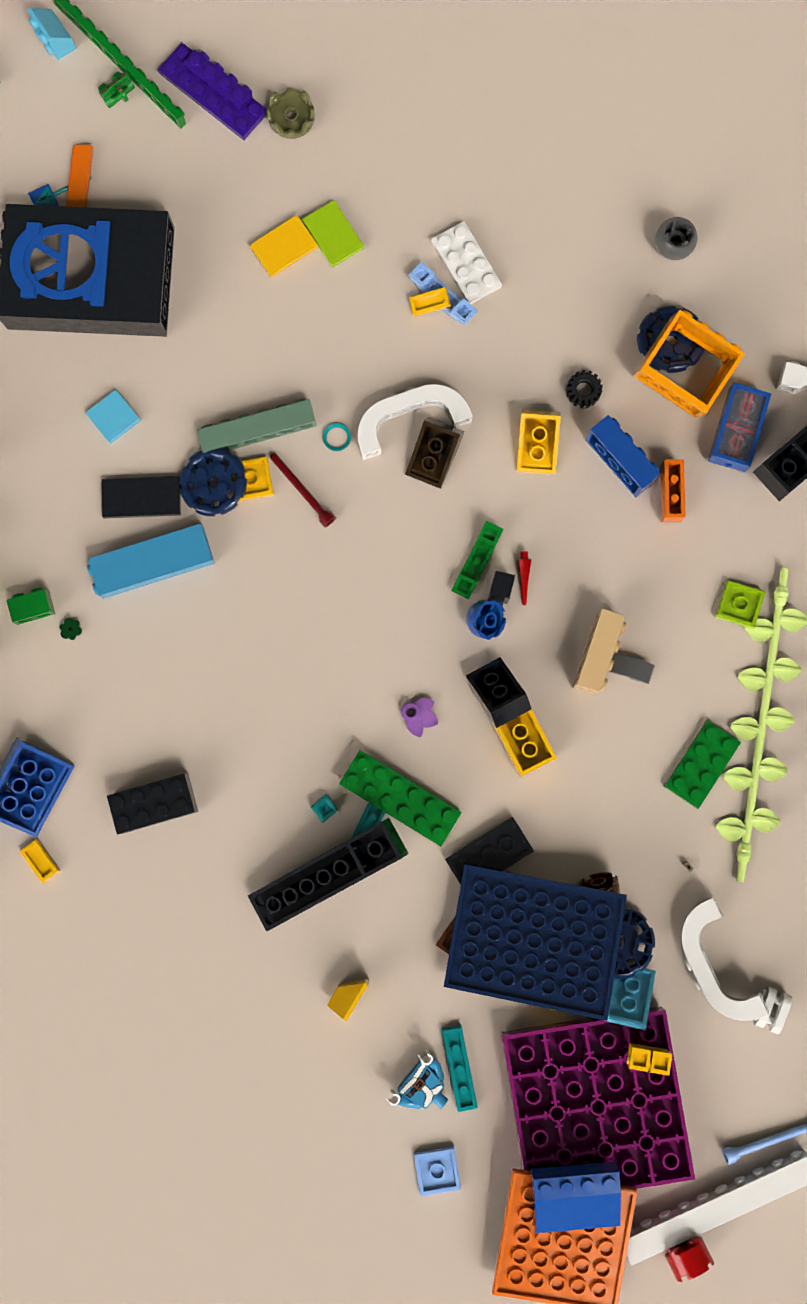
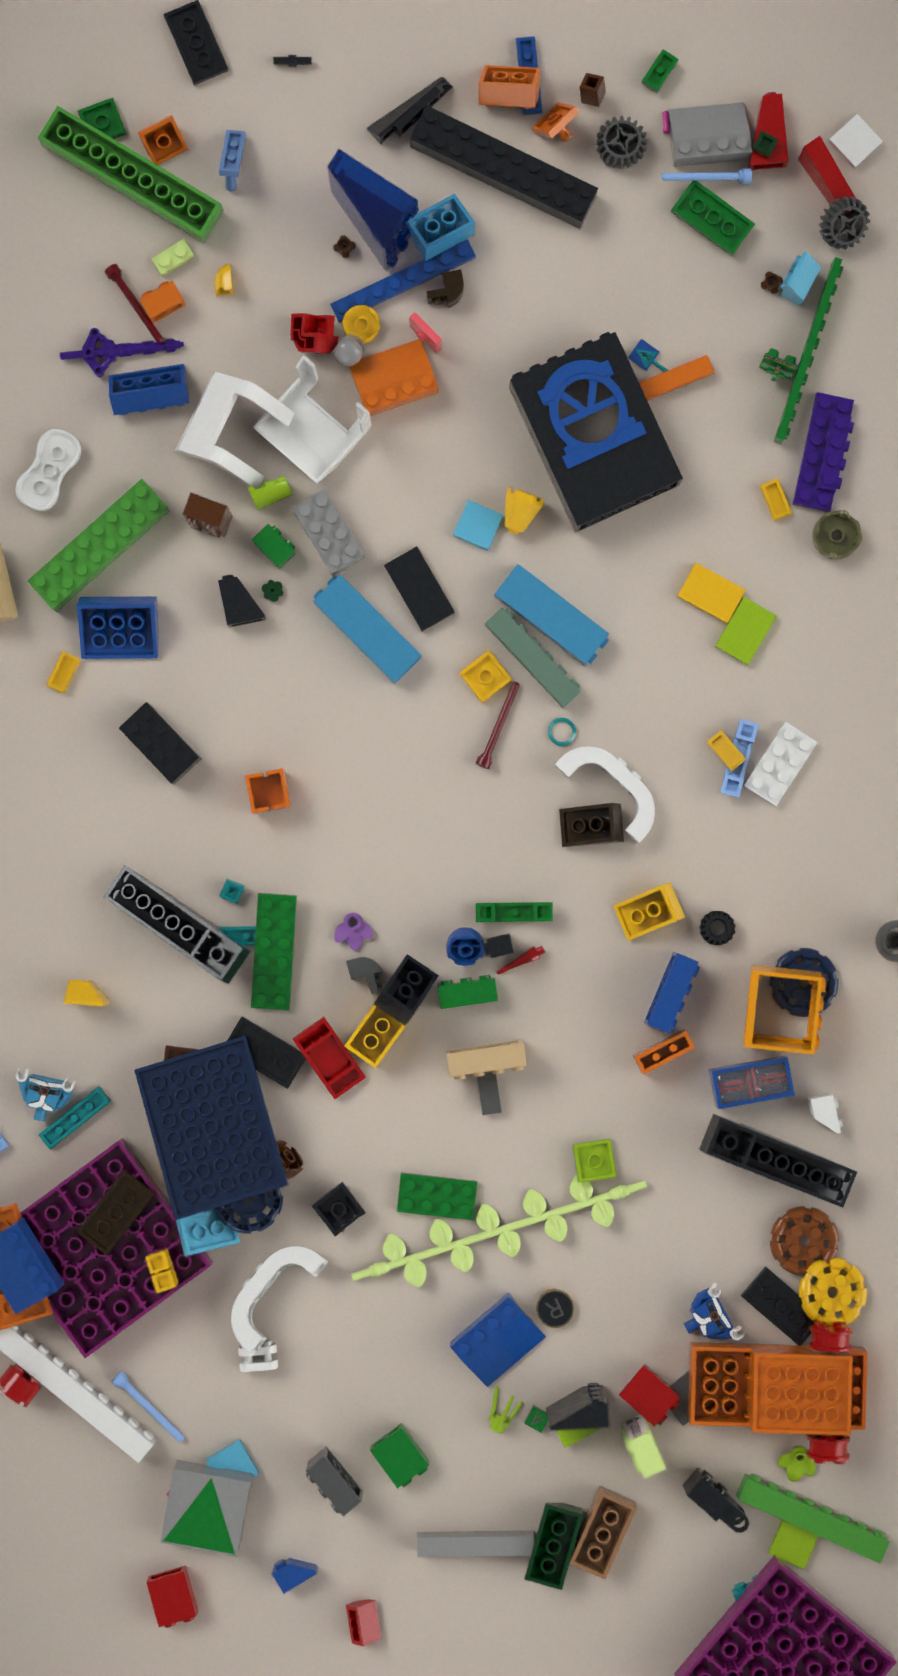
camera: 55 degrees right, 5 degrees up
(38, 57) = (777, 280): none -> reddish brown plate
(45, 550) = (328, 532): none -> light grey brick
(64, 665) = (238, 603): none -> black slope
(118, 369) = (520, 509): none -> yellow cone
(203, 476) = (459, 635): dark blue plate -> none
(228, 391) = (552, 615): none -> dark azure brick
(232, 151) = (775, 499): none -> yellow tile
(249, 726) = (268, 791): none -> orange piece
(458, 720) = (365, 967): none -> dark grey brick
(524, 797) = (329, 1057): none -> red slope
(528, 639) = (467, 992): none -> green brick
(570, 1075) = (116, 1212): none -> dark brown tile
(669, 861) = (338, 1208): none -> black slope

